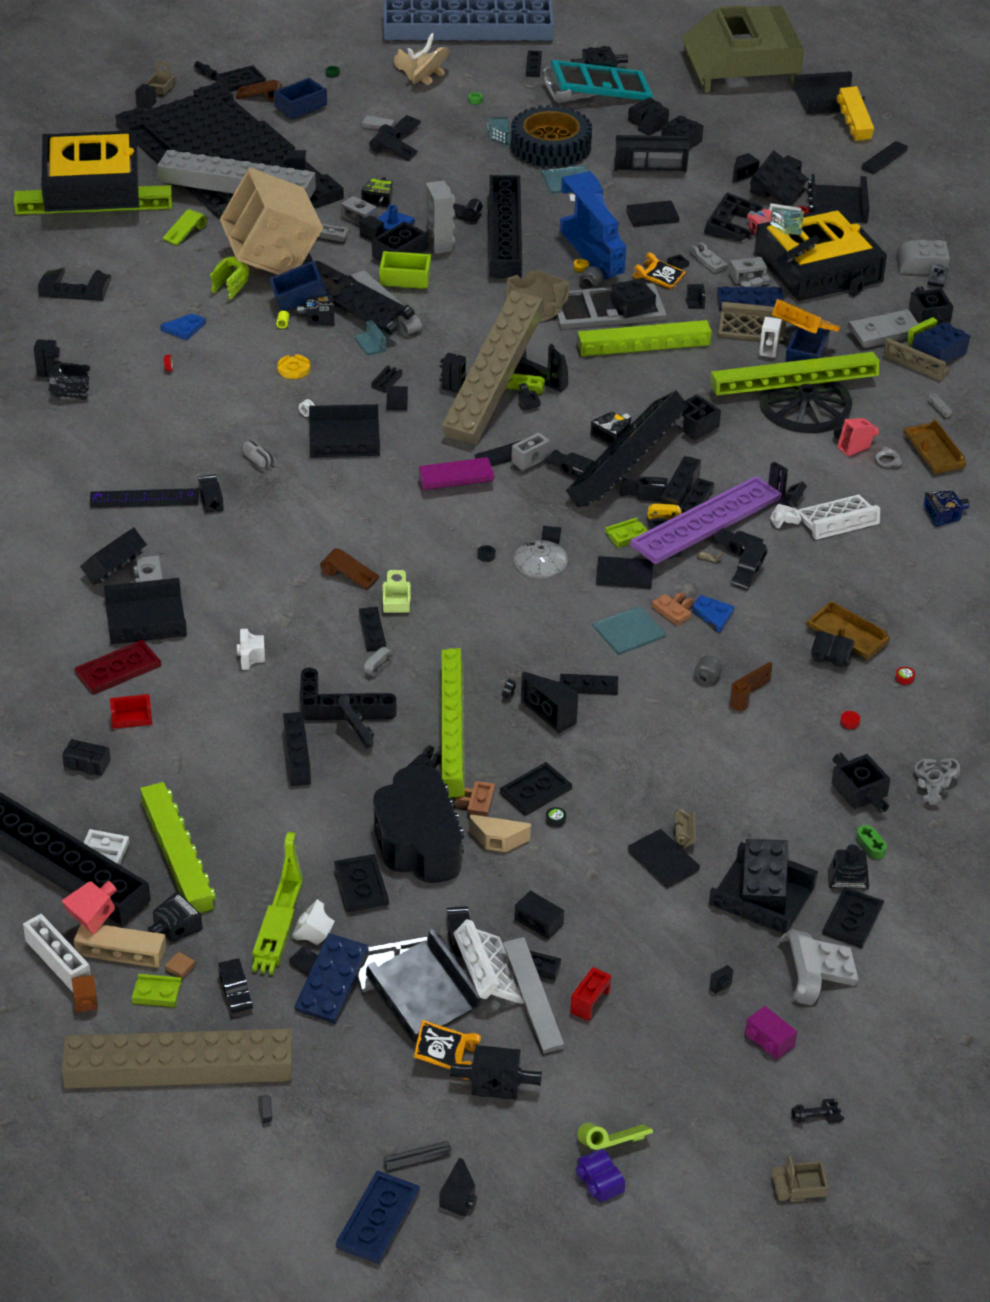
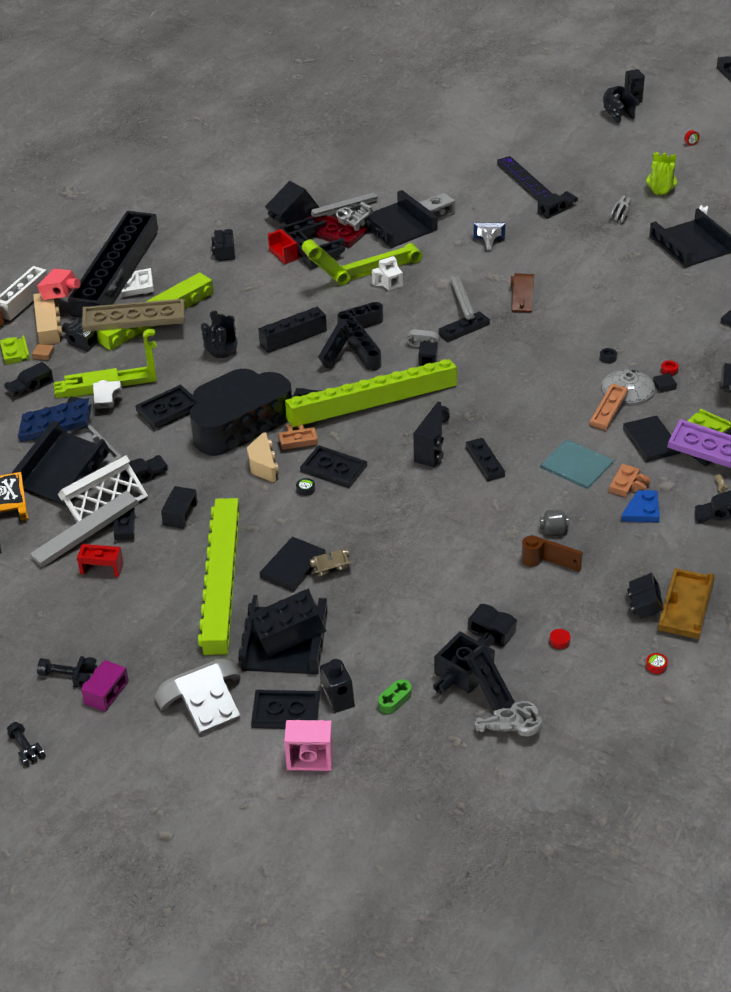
camera: 70 degrees right, 0 degrees up
(60, 677) = (291, 204): none -> black slope
(85, 643) = (350, 203): none -> light grey axle
(114, 556) = (435, 181): black brick -> none
(129, 637) = (357, 219): none -> light grey piece
(164, 693) = (302, 229): none -> black wedge
(189, 862) = (133, 315): none -> dark tan tile
(216, 675) = (357, 269): none -> lime piece
(228, 552) = (489, 232): none -> piece
(237, 403) = (662, 176): none -> lime piece
(273, 798) = (219, 334): none -> black piece
(331, 610) = (462, 297): none -> light grey axle
(396, 593) = (510, 323): yellowish green piece -> none
(408, 666) = (428, 353): none -> black brick
(455, 473) = (690, 306): magenta brick -> none
(531, 524) = (669, 367): none -> red tile
(568, 579) = (608, 407): none -> nougat tile
(657, 909) = (220, 577): none -> lime brick
(721, 979) = (155, 636): black plate -> none
(722, 1073) = (79, 678): none -> black bar
(817, 751) = (489, 620): none -> black brick
(895, 769) = (489, 678): none -> black plate
(918, 905) = (309, 745): none -> bright pink brick

